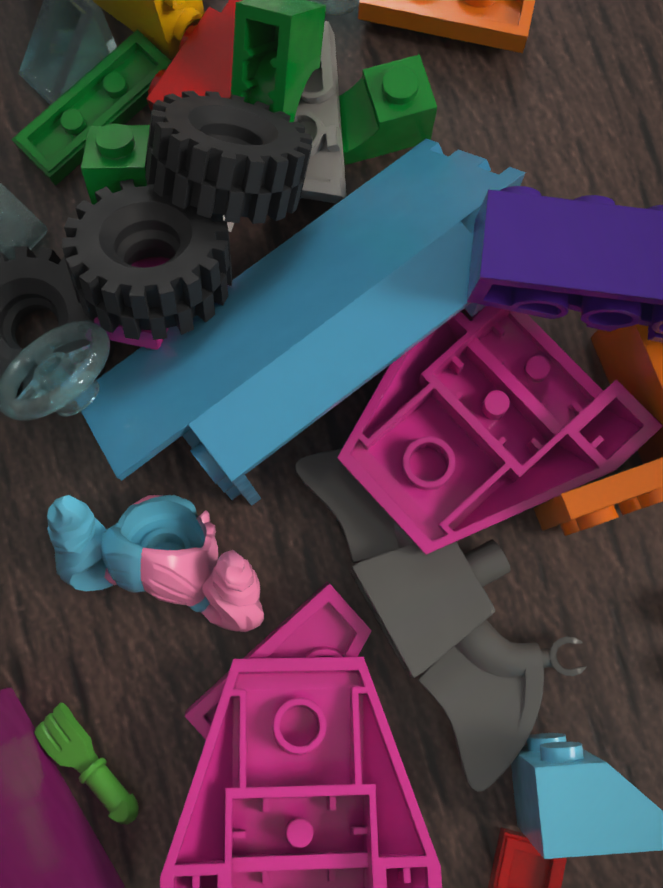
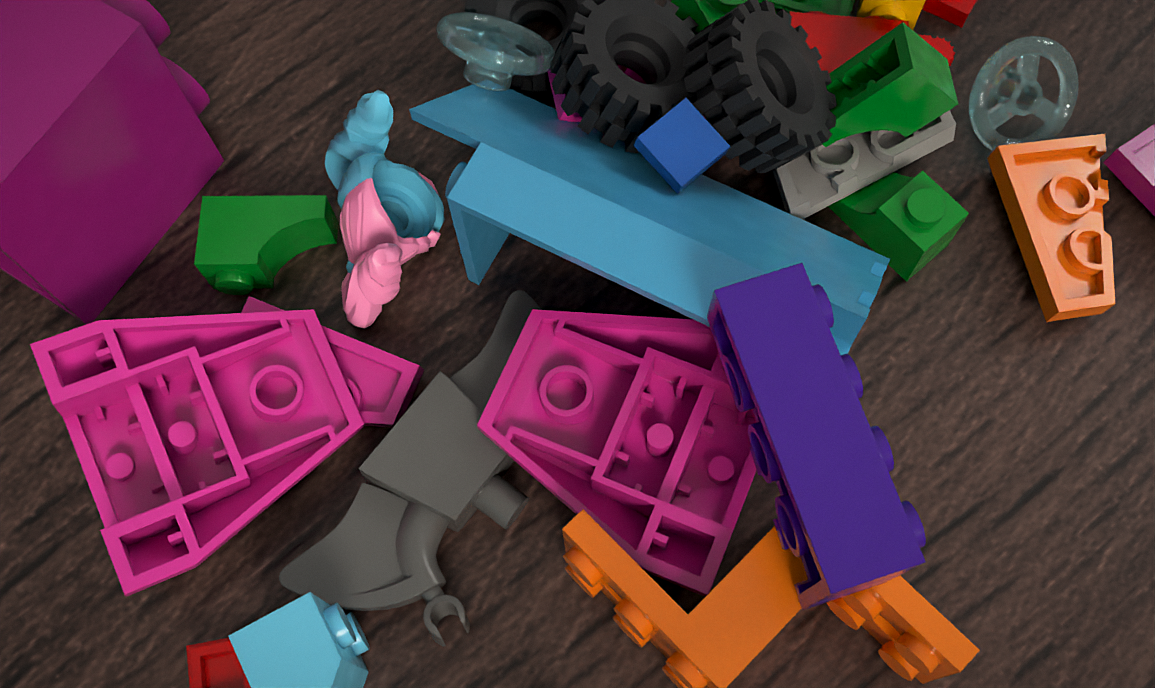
camera: 65 degrees right, 10 degrees down
(72, 747) = (175, 252): bright green piece -> none
(119, 692) = (252, 237): none -> green arch
(263, 249) = (681, 145): none -> blue tile

